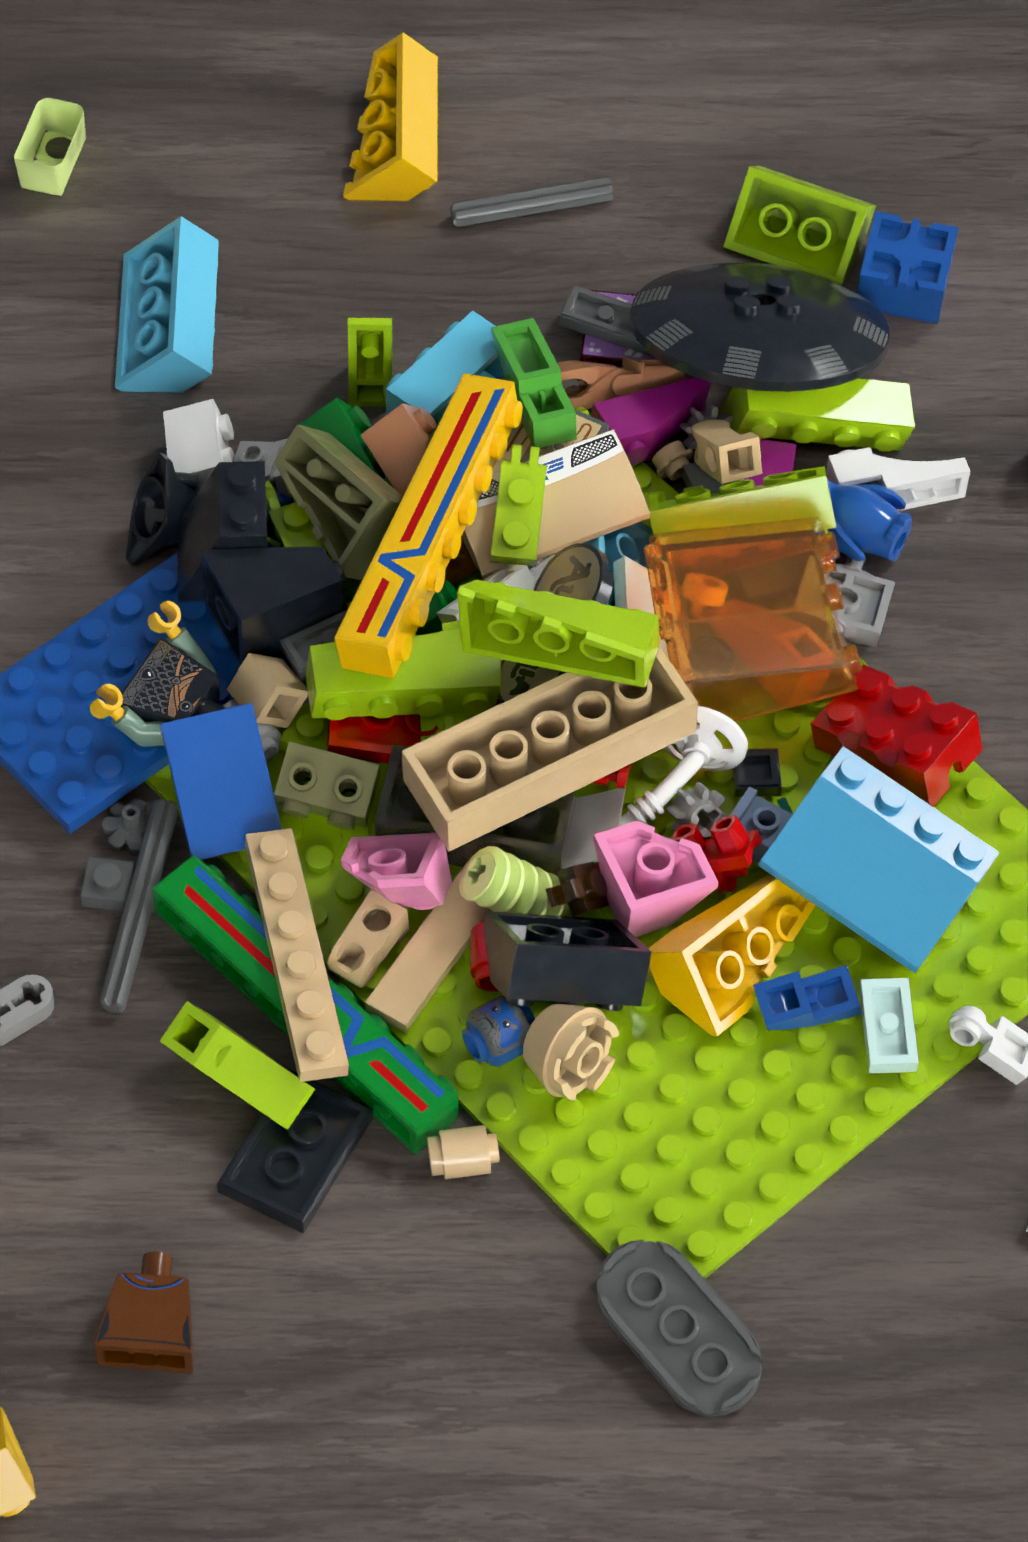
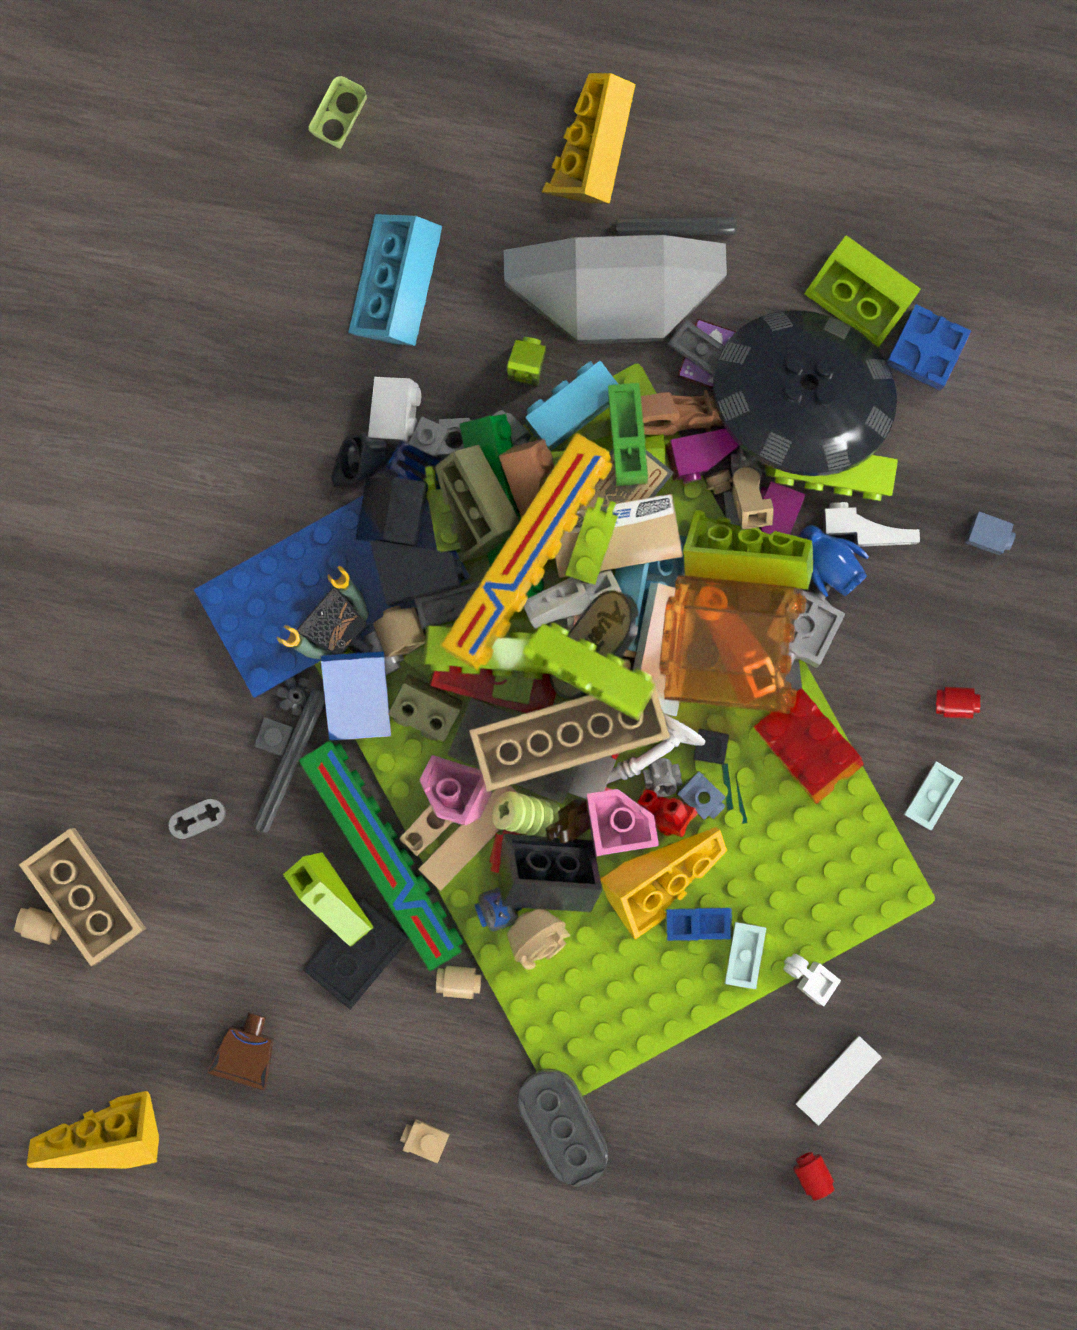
camera: 15 degrees right, 30 degrees up
(296, 955) = (379, 831): tan plate -> none
(463, 1394) = (424, 1140): none -> tan bracket
(464, 239) = (616, 284): none -> light grey panel
(878, 859) = (767, 844): dark azure slope -> none

